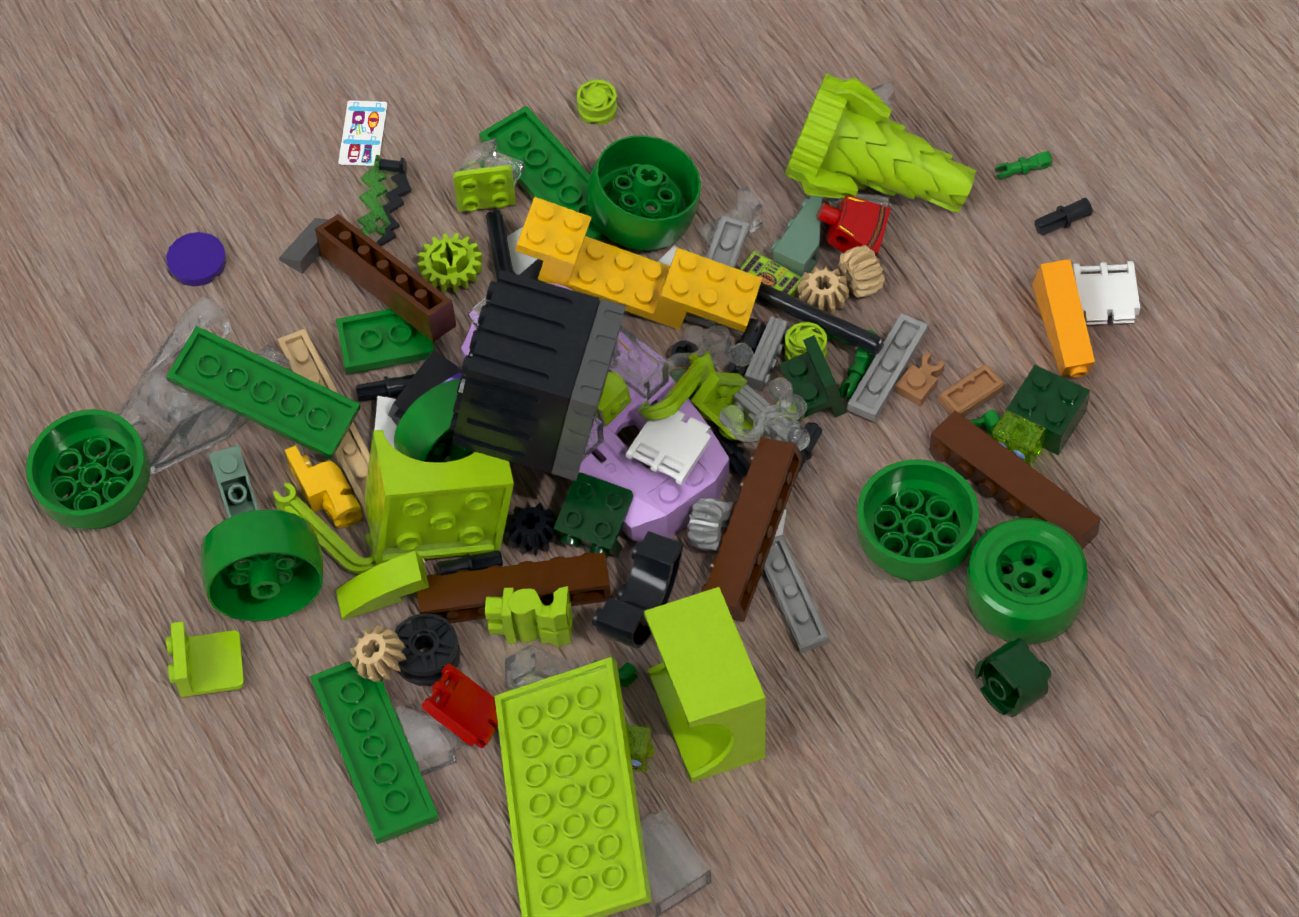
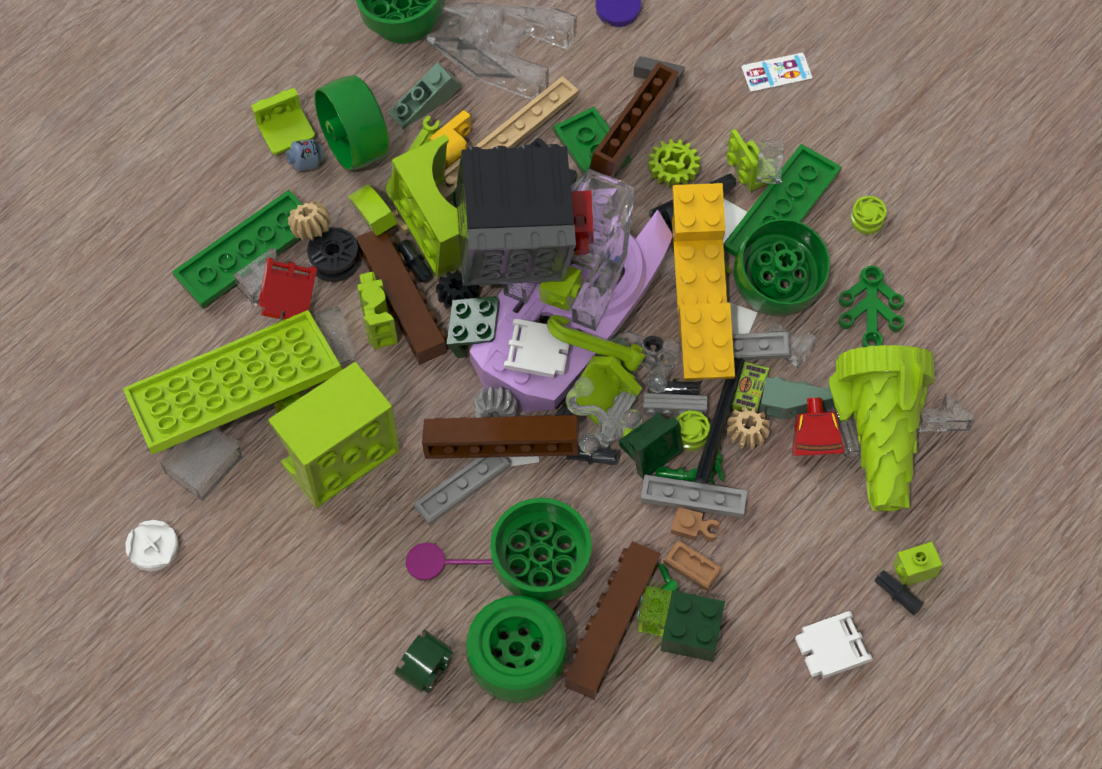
camera: 70 degrees right, 5 degrees up
(263, 392) = (500, 78): green plate -> none
(266, 645) = (305, 155): none -> sand blue head
(372, 179) = (706, 105): piece -> none
(648, 587) = (412, 381): black brick -> none
(714, 135) = (871, 305): none -> green plant
(861, 271) = (773, 448): tan gear -> none
(875, 654) = (427, 561): none -> magenta piece
(1023, 165) = (942, 548): green piece -> none
(1039, 187) = (917, 564): none -> lime head
(1063, 318) = (786, 616): light orange slope -> none

